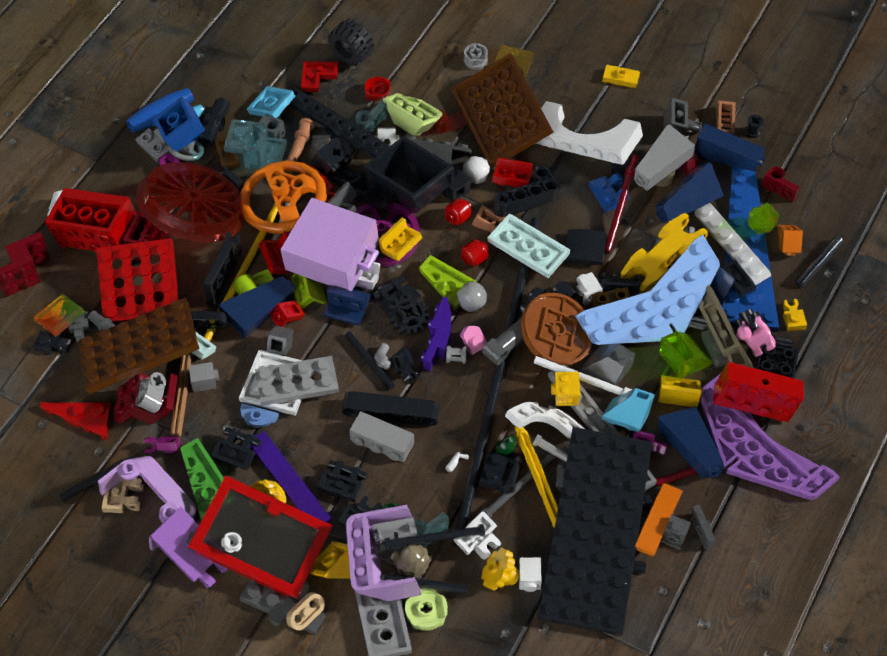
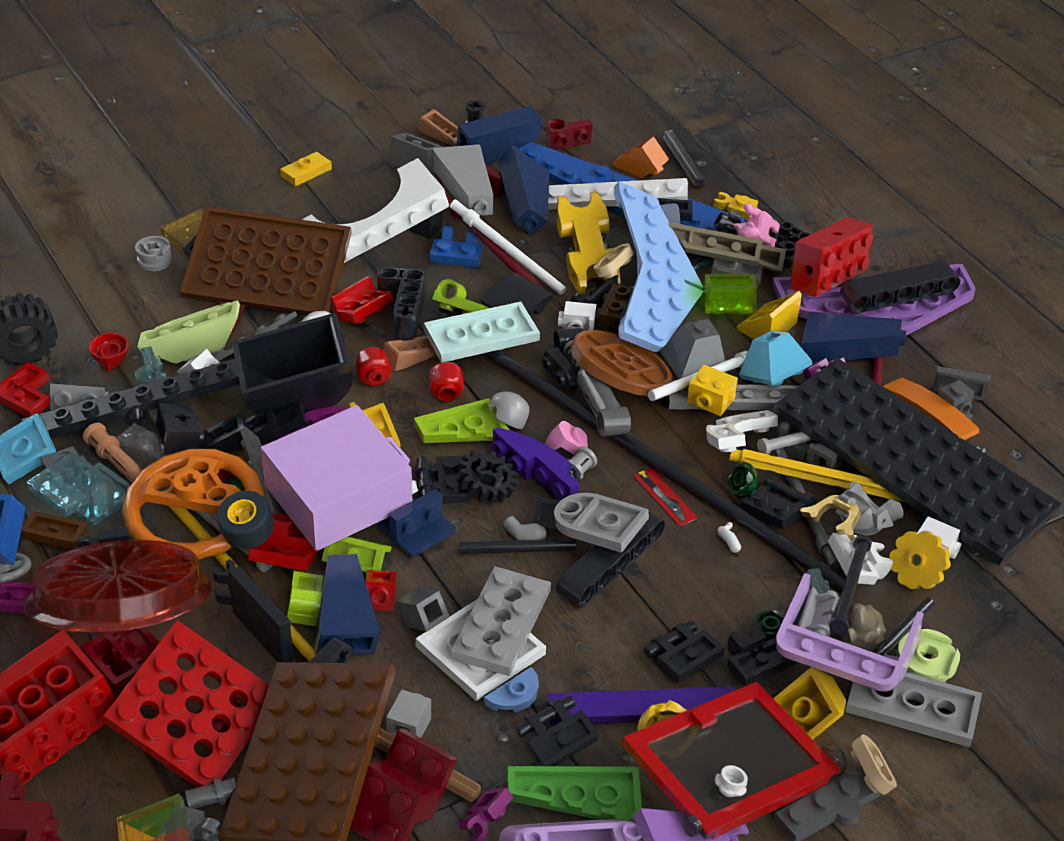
camera: 60 degrees left, 15 degrees down
(151, 392) = (407, 763): light grey piece -> none
(273, 224) = (245, 519): none -> black wheel
(330, 99) = (67, 395): none -> light grey hinge
(381, 437) = (648, 582): light grey brick -> none
(401, 388) = (599, 520): none -> light grey plate
(469, 412) = (665, 496): none -> red sticker
(522, 520) = (857, 512): none -> light grey helmet
(554, 215) = (458, 300): none -> lime plate
(624, 182) = (473, 219): none -> white bar
(640, 275) = (613, 260): none -> tan plate
(763, 218) = (610, 155): clear neon green brick -> none
(768, 448) = (900, 287): none -> black beam

